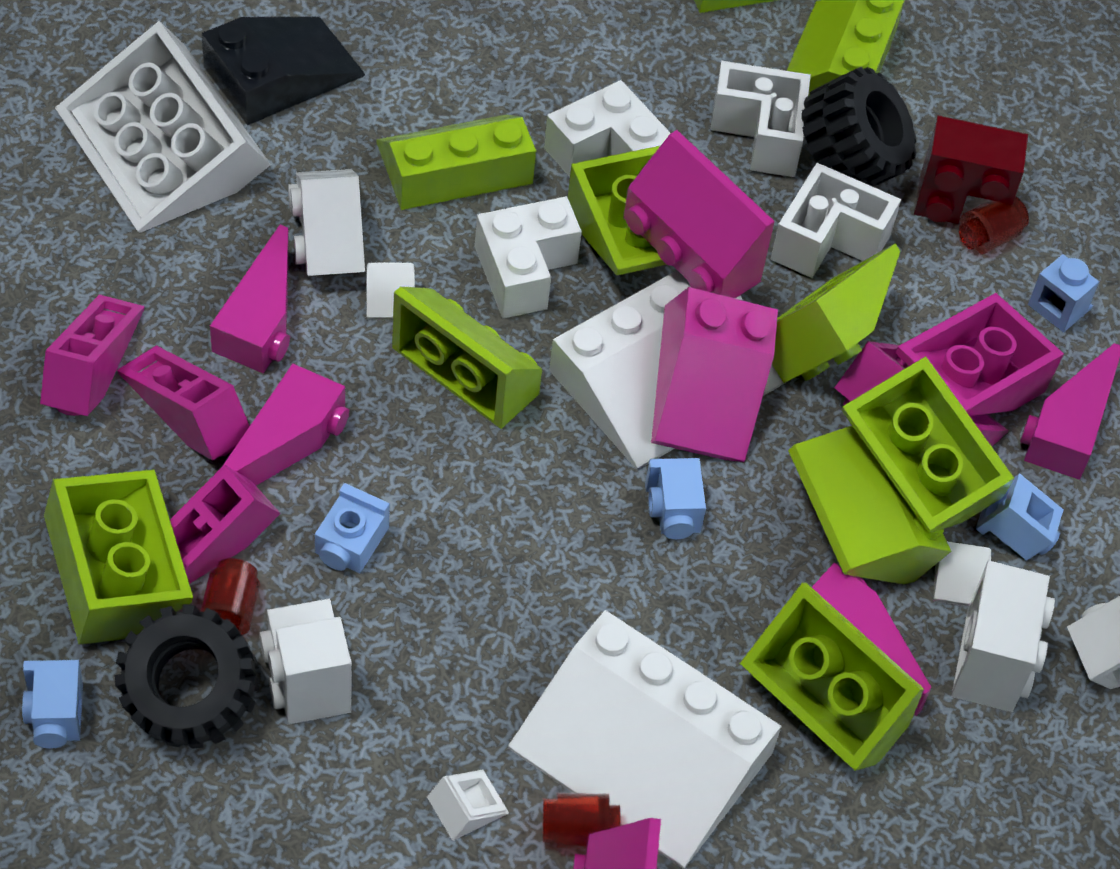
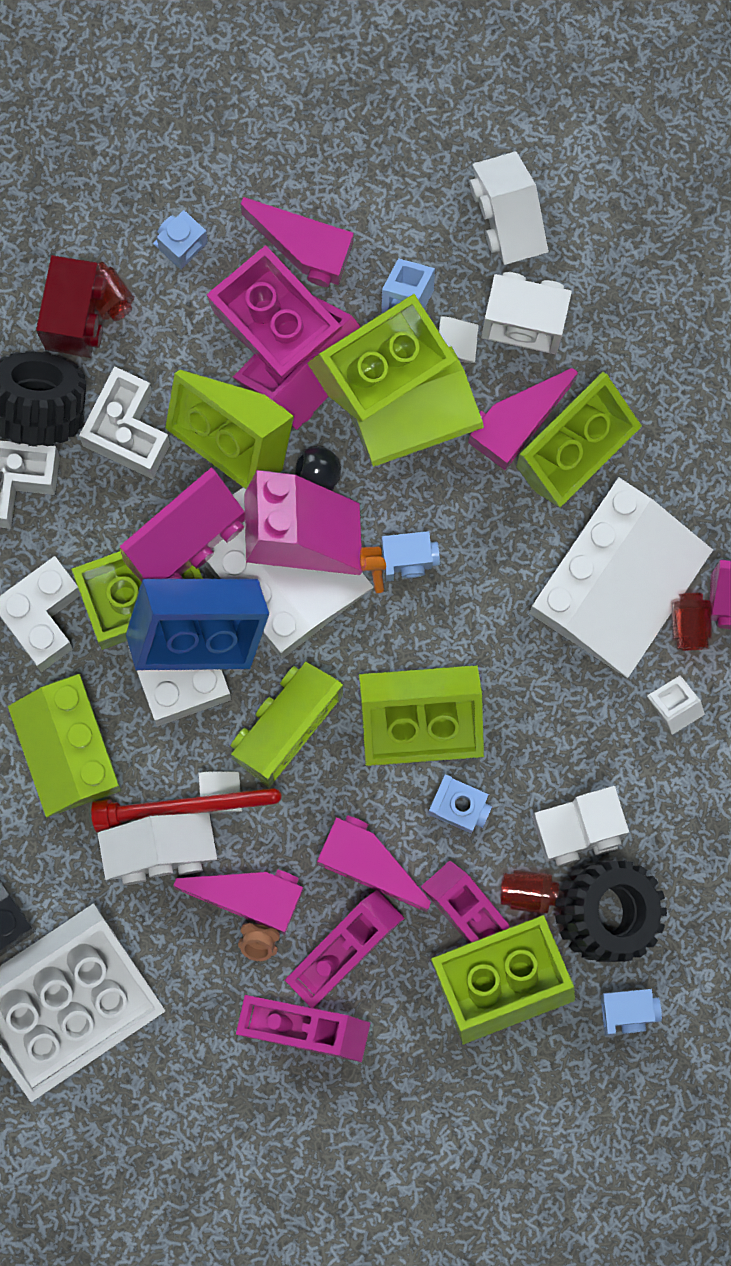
camera: 90 degrees left, 25 degrees up
(202, 313) = (258, 941): none -> nougat plate
(374, 189) = (109, 815): none -> red piece
(470, 497) = (422, 715): none -> lime slope
(586, 232) = (196, 624): none -> blue brick
(666, 448) = (372, 560): none -> orange hand
(785, 409) = (319, 466): none -> black piece

